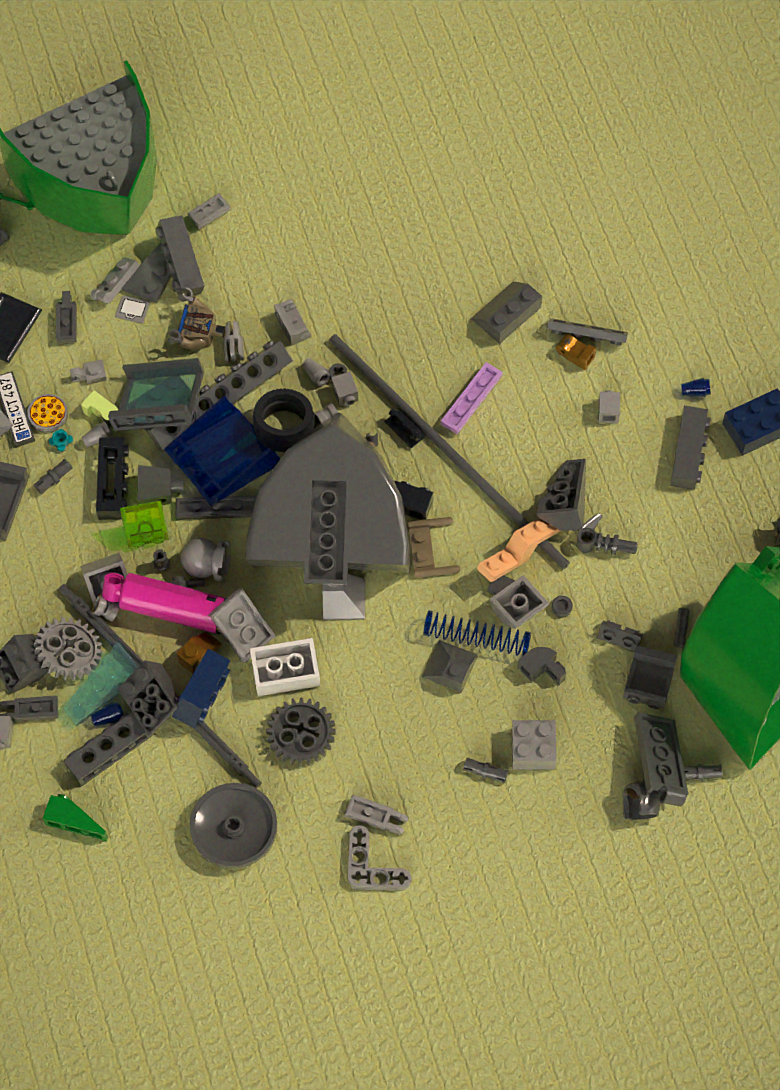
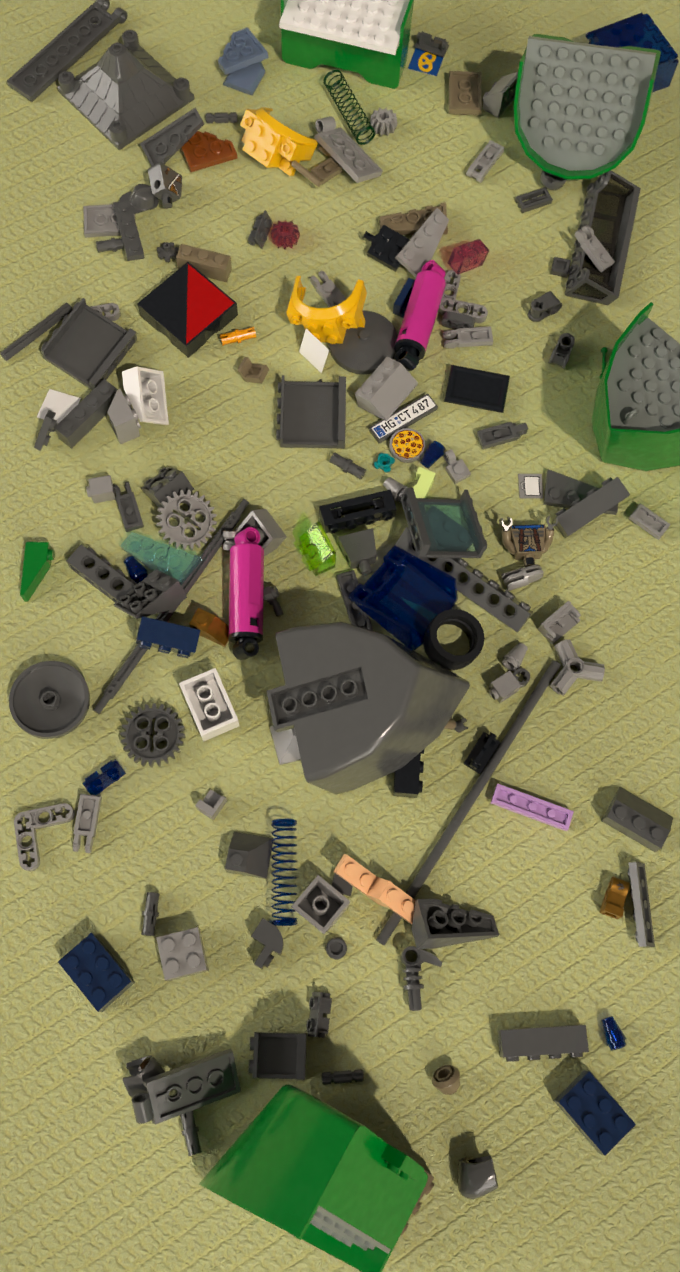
camera: 70 degrees right, 5 degrees up
(67, 390) = (433, 453): none -> clear blue cone
(115, 280) = (551, 462): light grey plate -> none
(161, 561) = (289, 574): dark grey pin -> none
(204, 558) = (297, 608): light grey tile -> none
(241, 624) = (238, 655): light grey tile -> none
(321, 416) = (472, 677): light grey wheel -> none
(330, 781) = (97, 783): none -> clear blue hinge
(347, 313) = (567, 677): none -> light grey piece
(390, 689) = (211, 804): none -> light grey panel
(422, 548) = (363, 799): dark tan plate -> none
(531, 829) = (96, 972): none -> dark blue brick
(609, 407) = (563, 946): light grey brick -> none
(704, 536) = (446, 1079): none -> dark tan cone

